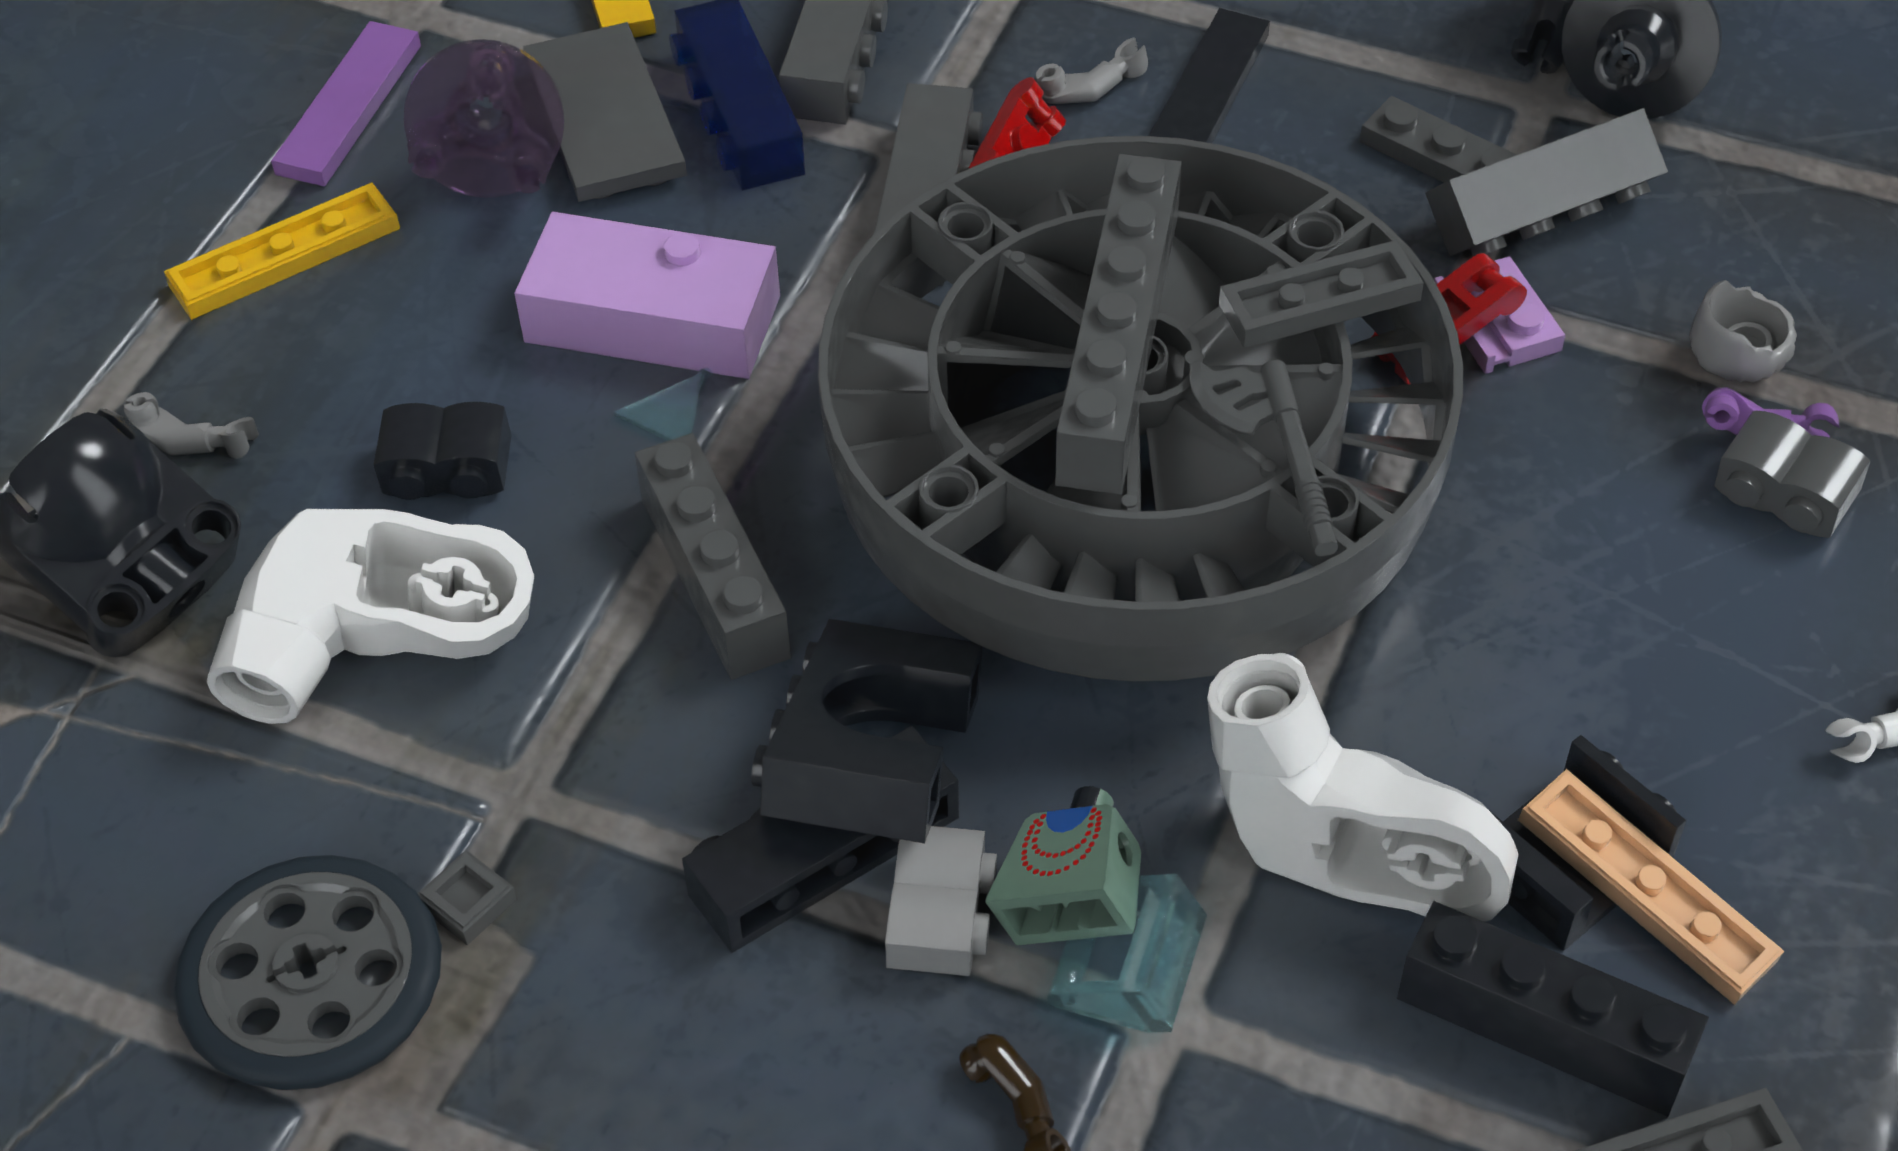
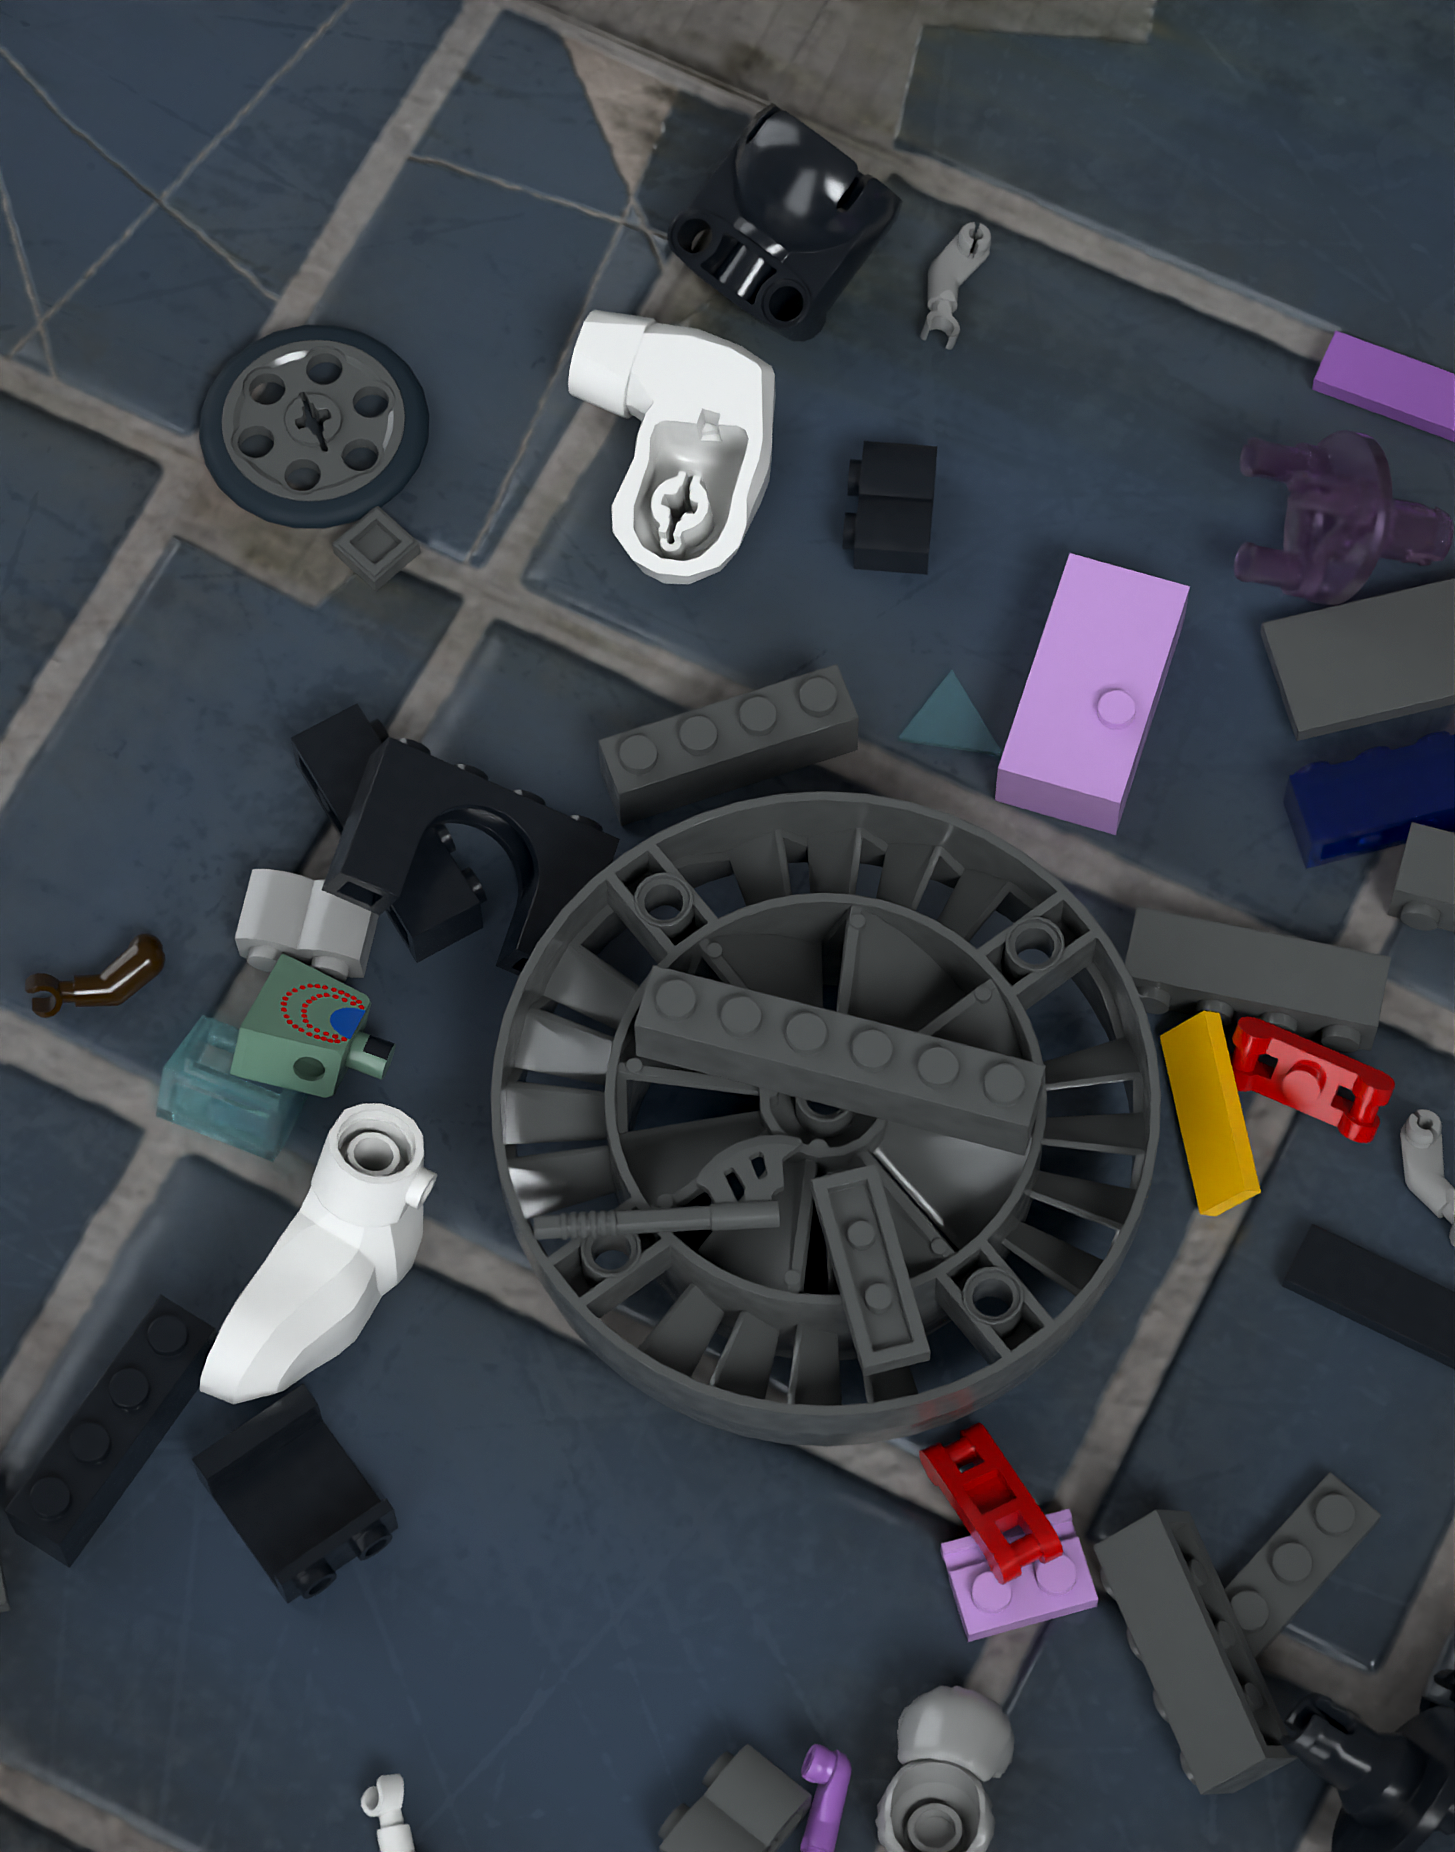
camera: 95 degrees right, 15 degrees up
(281, 250) = (1207, 350): yellow tile -> none
(1651, 886) = (243, 1559): light nougat tile -> none
(1671, 320) = (959, 1729): none -> light grey hair

